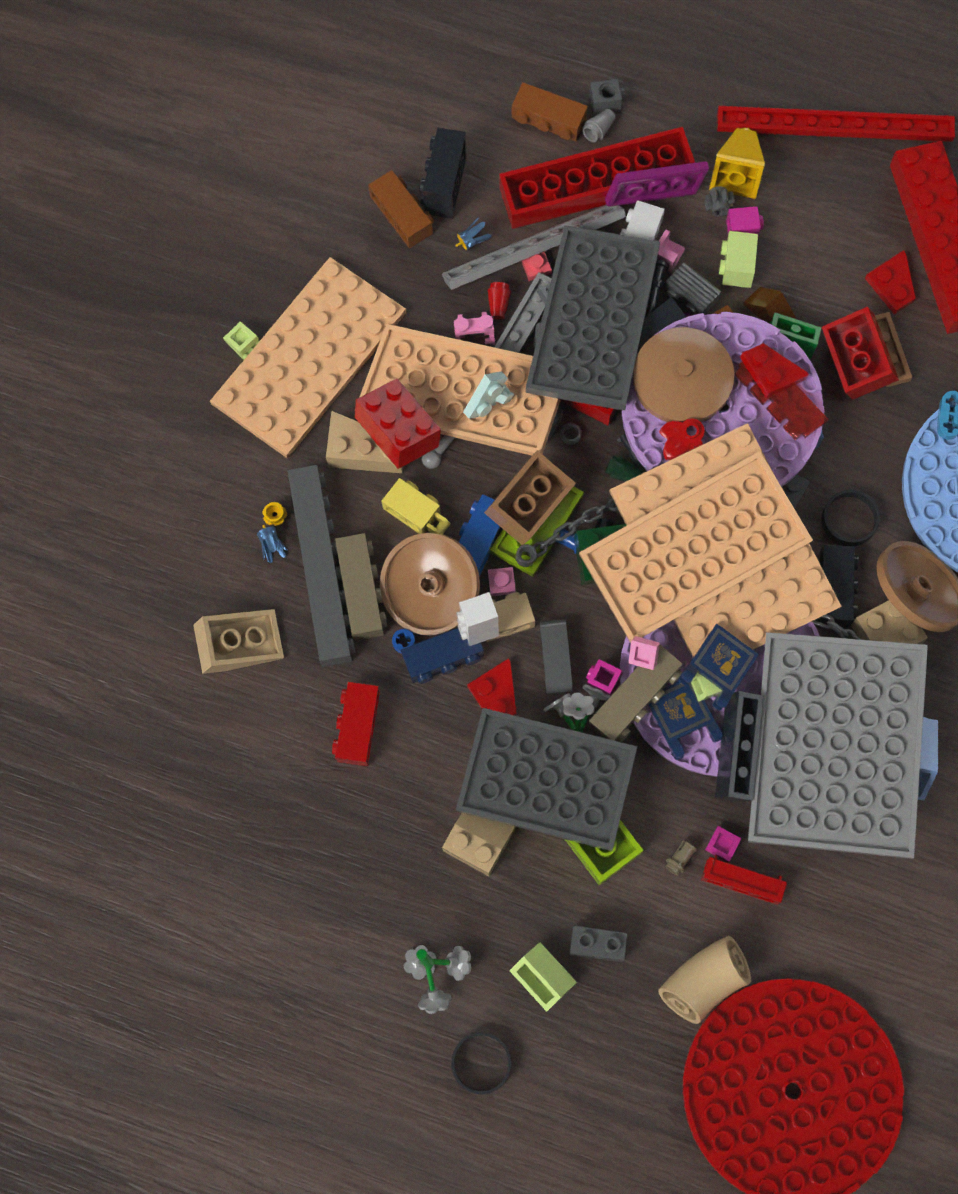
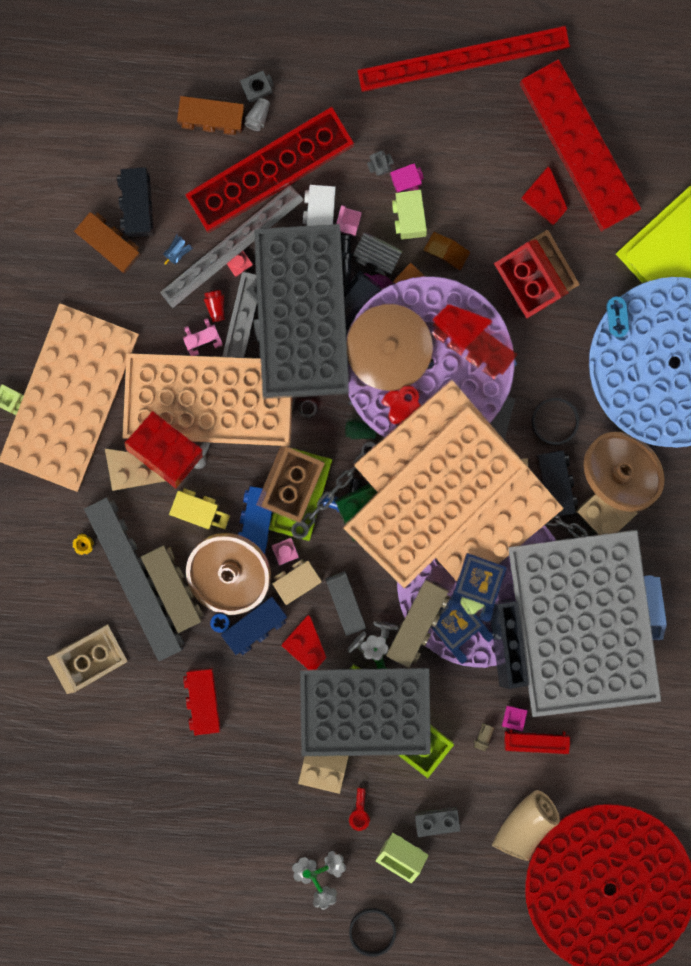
camera: 20 degrees left, 15 degrees up
(270, 543) = (85, 568): flat silver piece -> none
(478, 619) = (277, 604): white brick -> none
(488, 393) = (233, 406): light aqua hinge -> none
(503, 915) = (359, 818): none -> red plate
(604, 677) = (389, 613): dark pink brick -> none
(644, 652) = (415, 594): bright pink plate -> none
(656, 183) = (323, 168): magenta tile -> none
(739, 164) = (389, 122): yellow slope -> none
(802, 333) = (473, 275): green brick -> none

